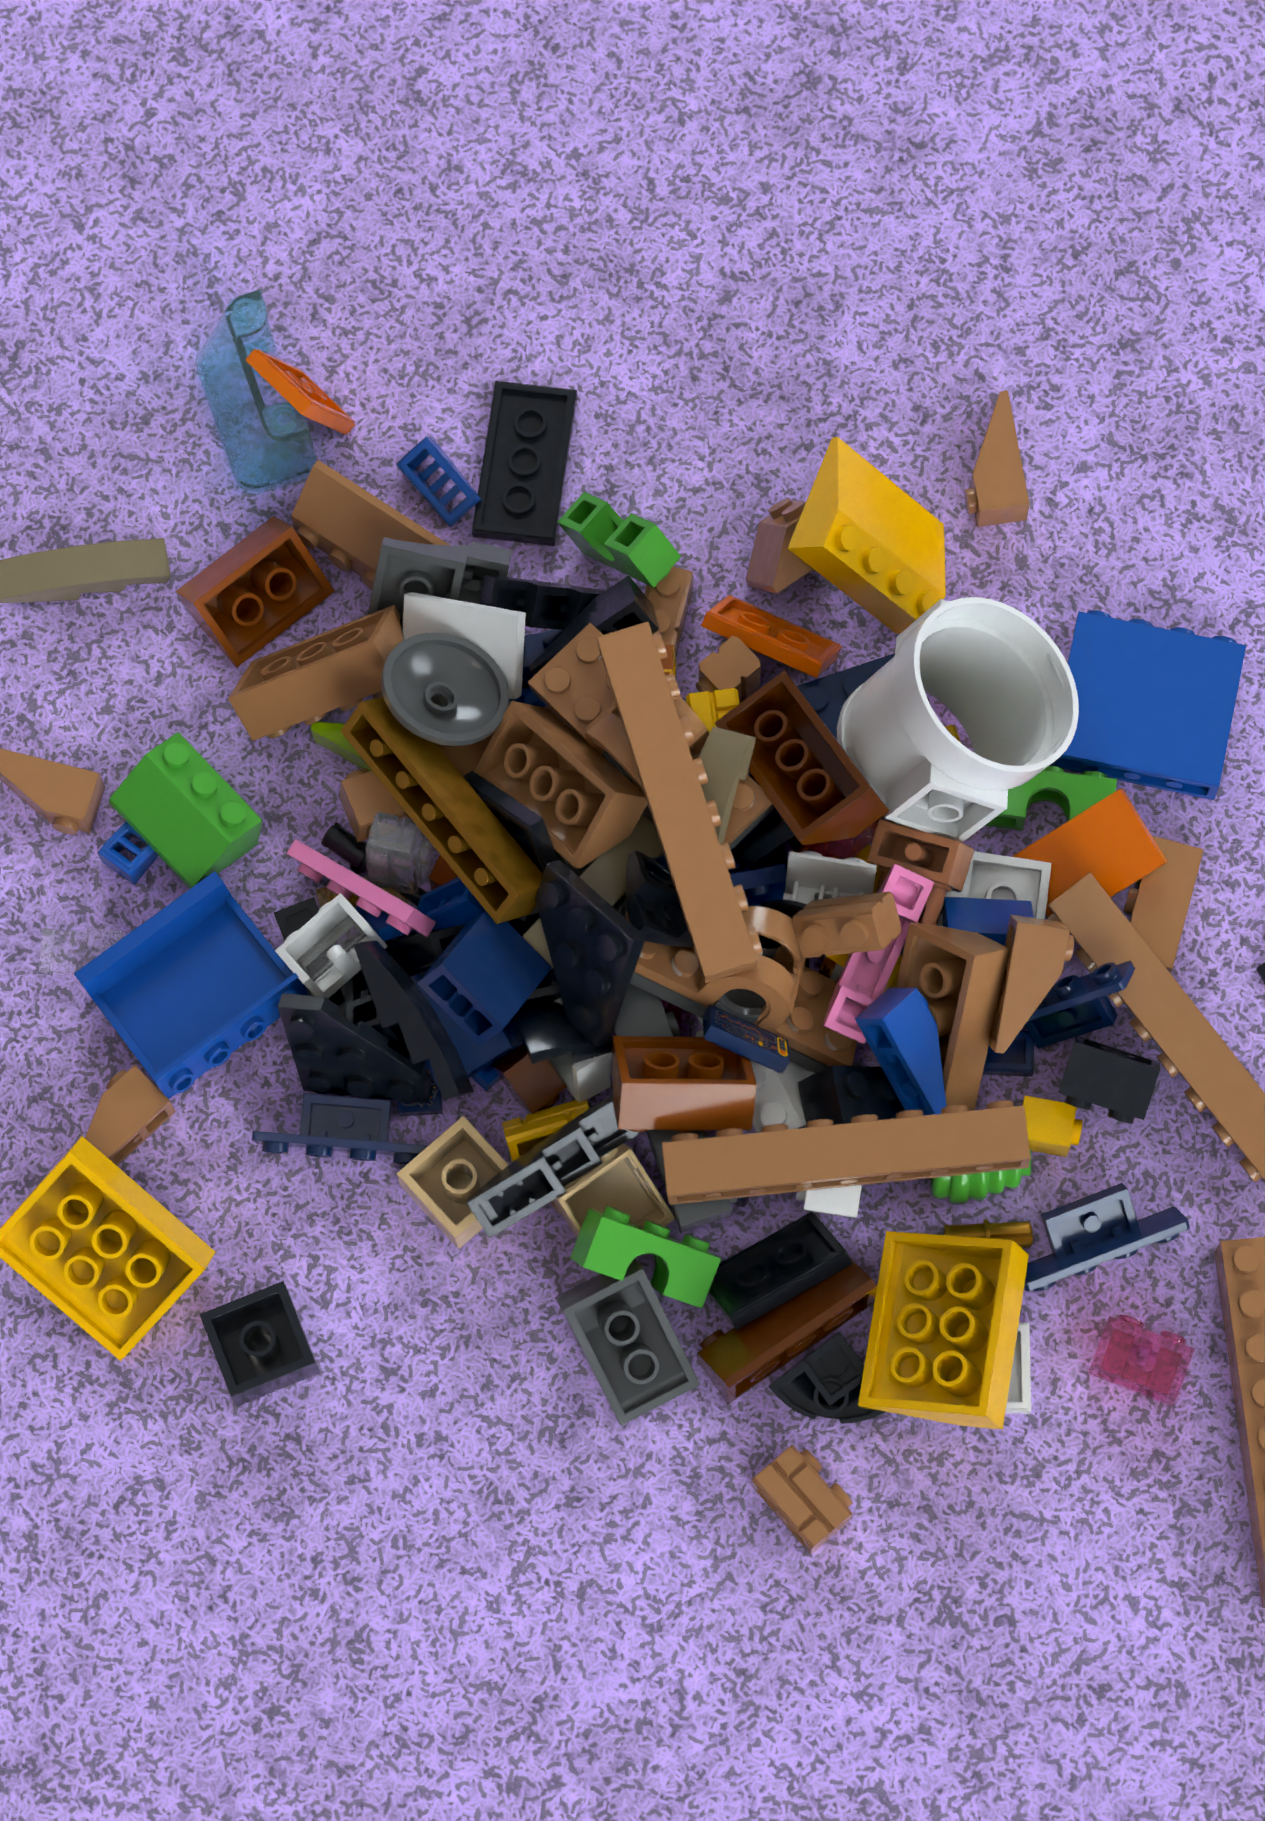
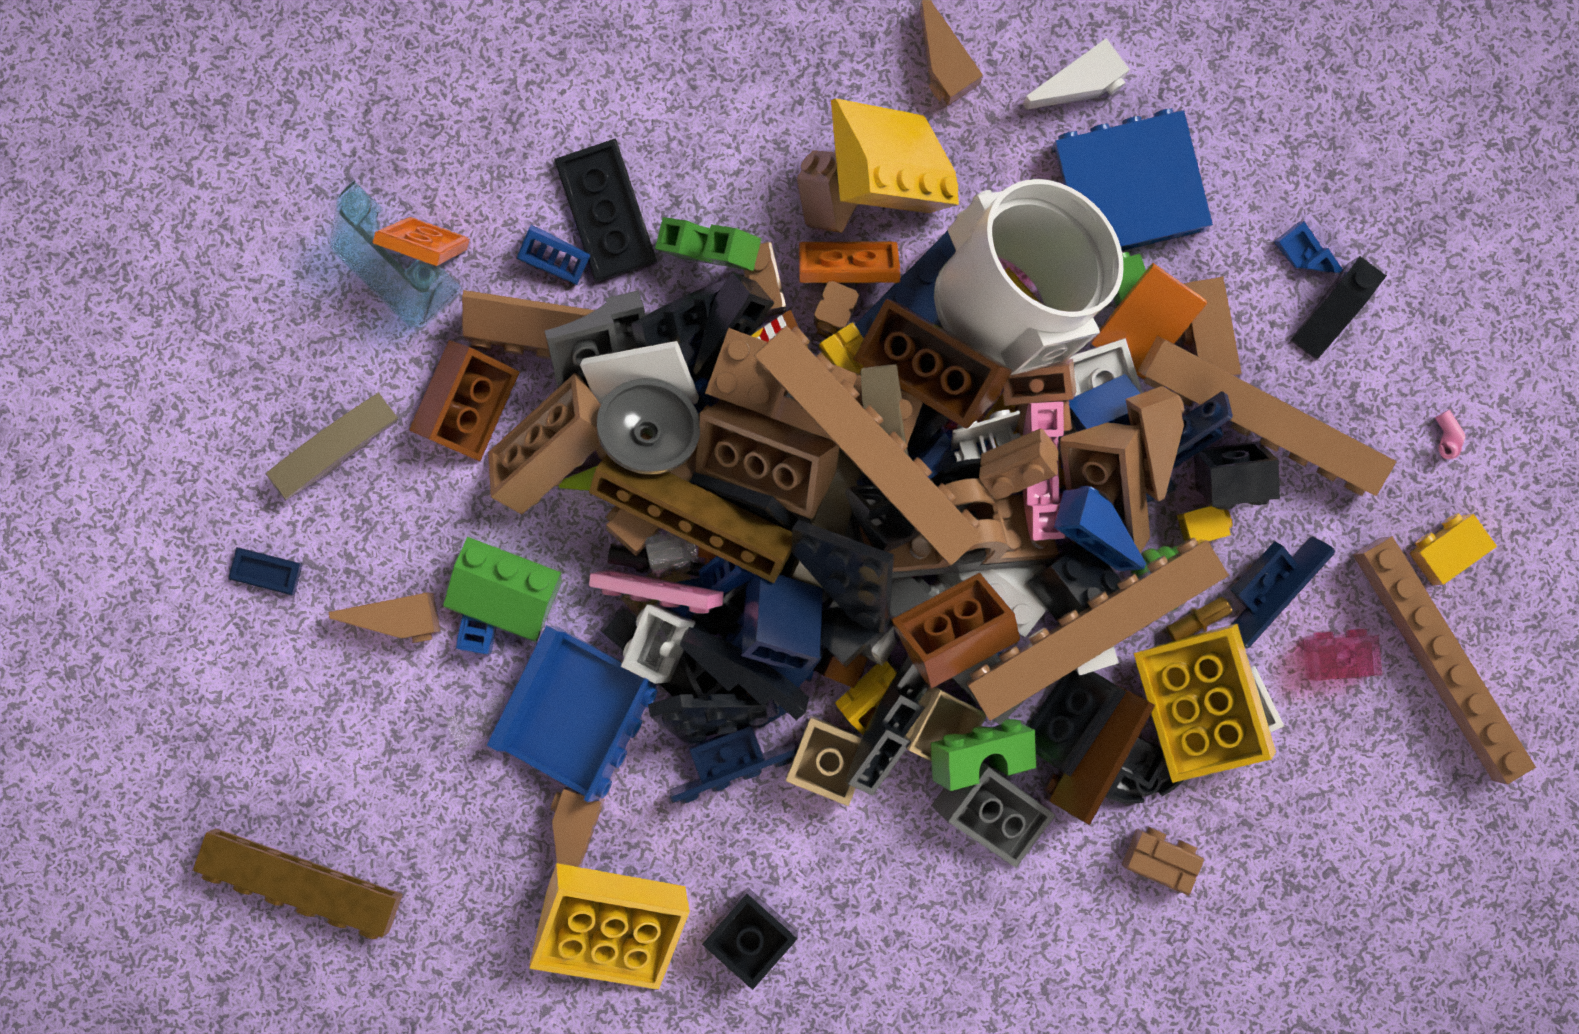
camera: 25 degrees left, 15 degrees up
(745, 1039) = (985, 577): dark blue tile -> none
(1146, 563) = (1085, 78): none -> white slope

